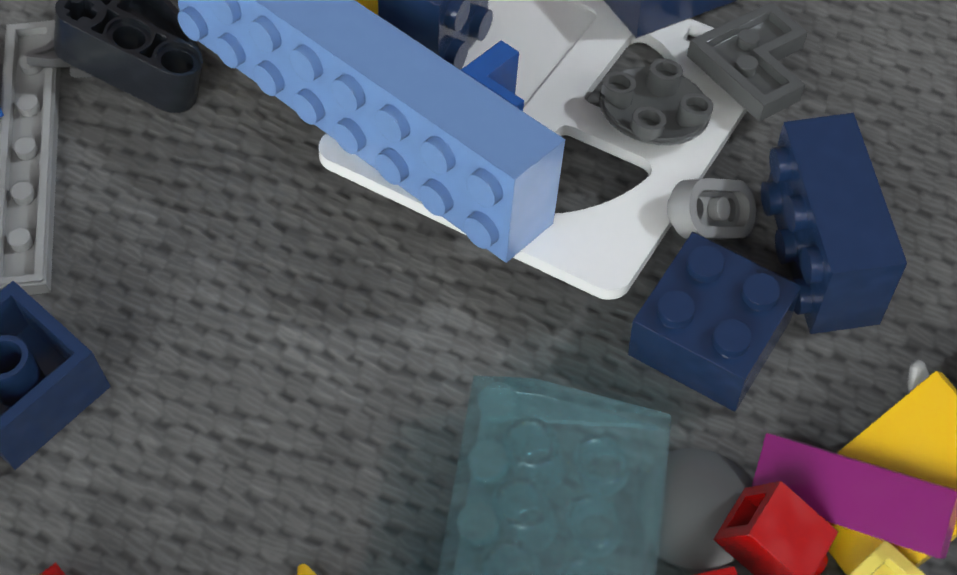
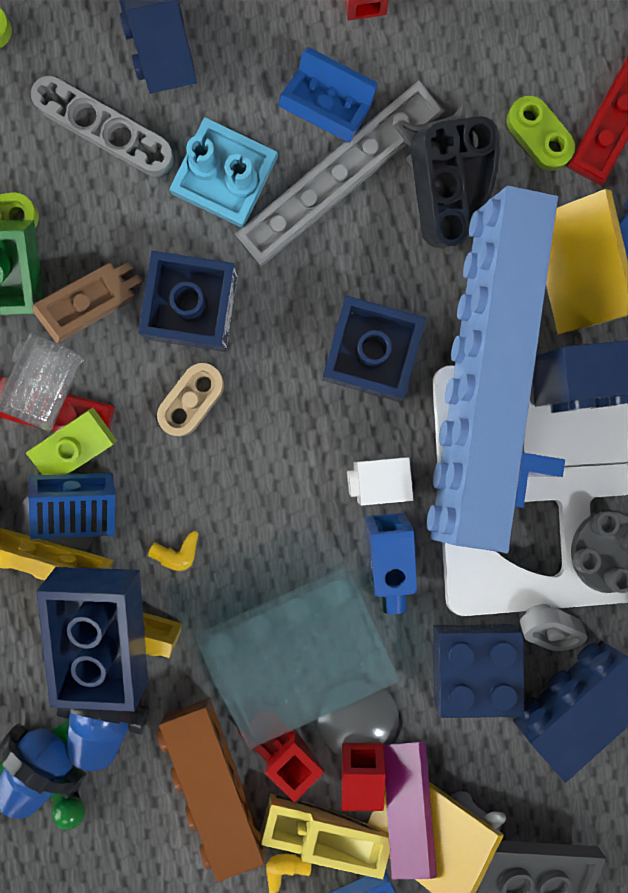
camera: 50 degrees right, 30 degrees up
(132, 461) = (188, 397): none -> tan plate
(242, 211) = (374, 349): none -> dark blue brick
(397, 281) = (381, 481): none -> white brick
(504, 329) = (391, 547): none -> blue torso

